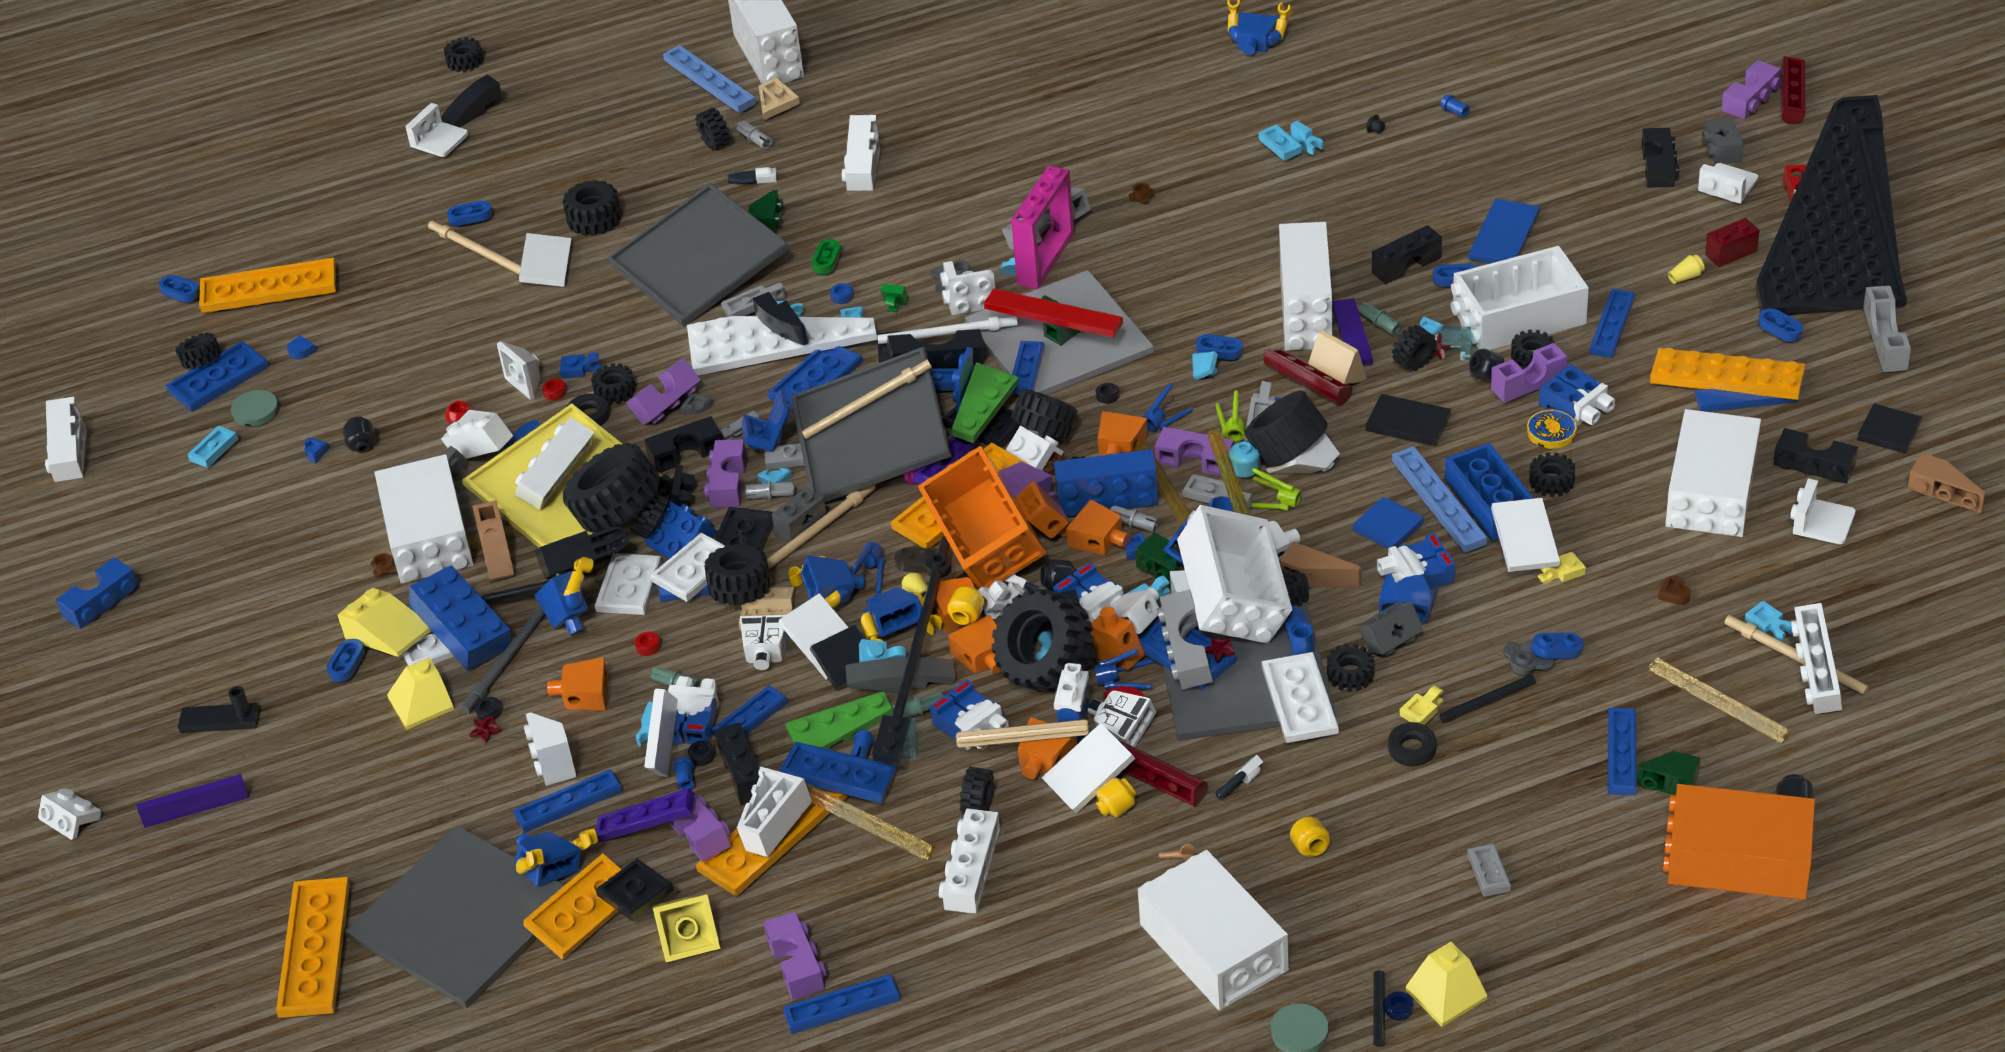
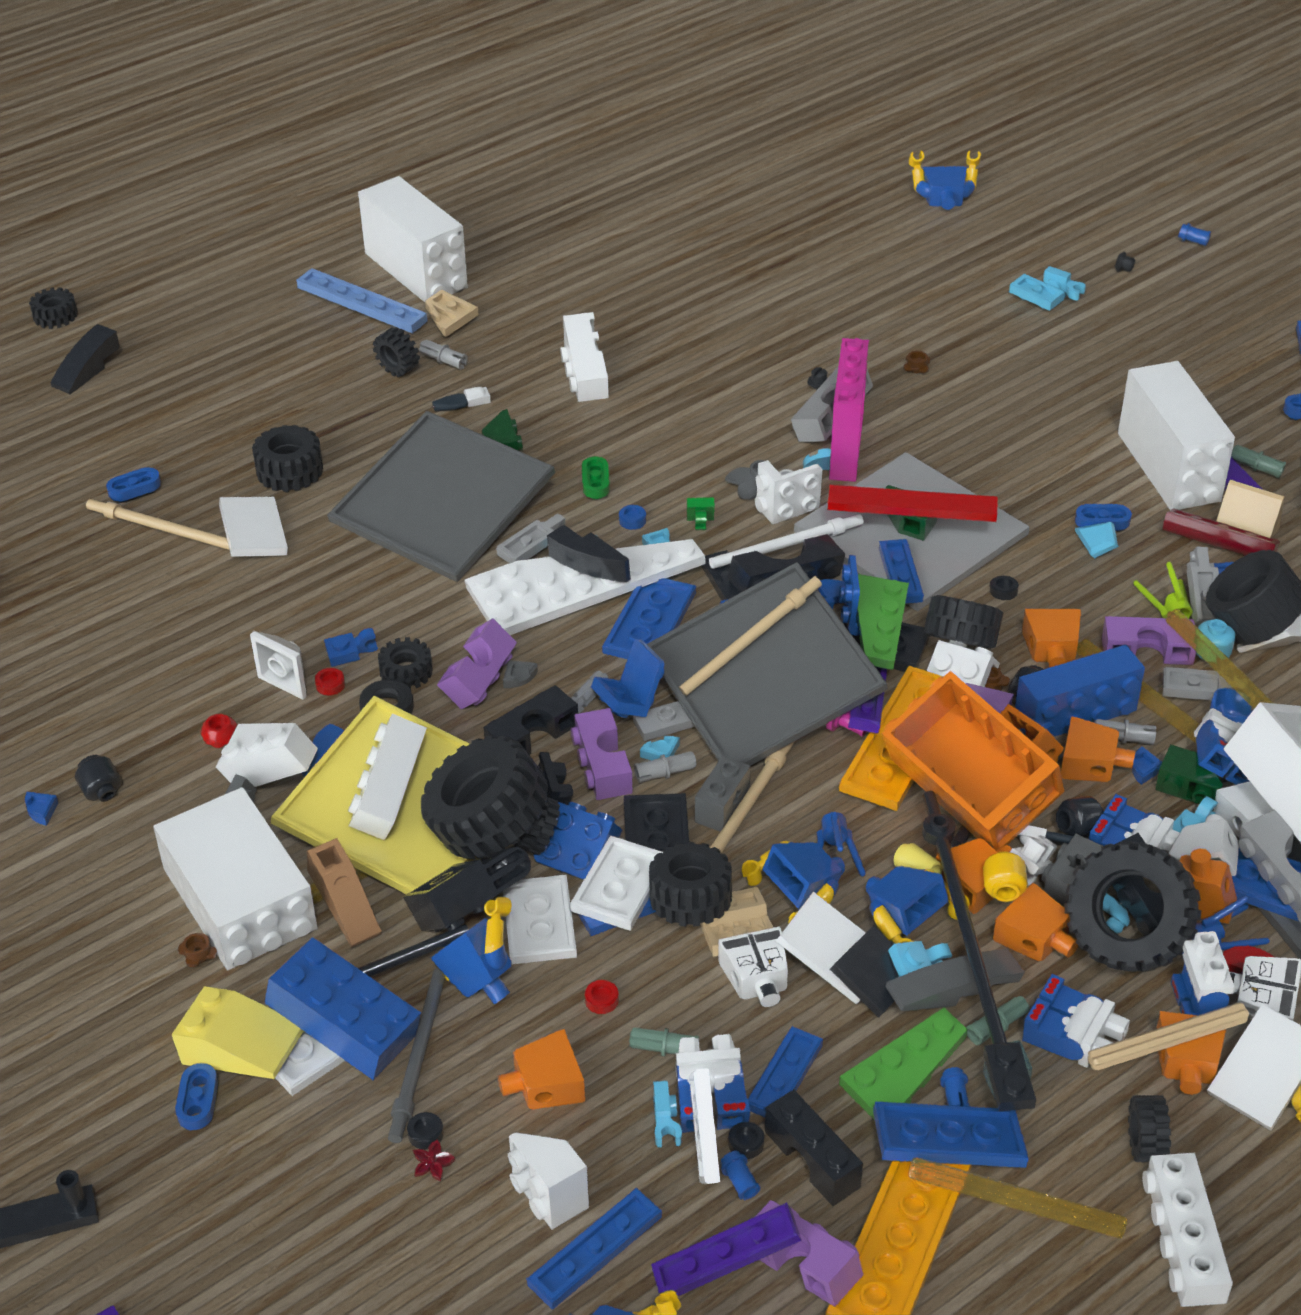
camera: 20 degrees left, 0 degrees up
(419, 694) = (323, 1128): light yellow slope -> none
(432, 135) = (53, 402): white bracket -> none
(772, 810) = (907, 1209): white wedge -> none
(913, 559) = (893, 824): clear smoke plate -> none
(1156, 415) = (1079, 600): blue plant -> none
(1286, 494) = (1285, 674): lime plant -> none
(1421, 245) = (1255, 380): black arch -> none

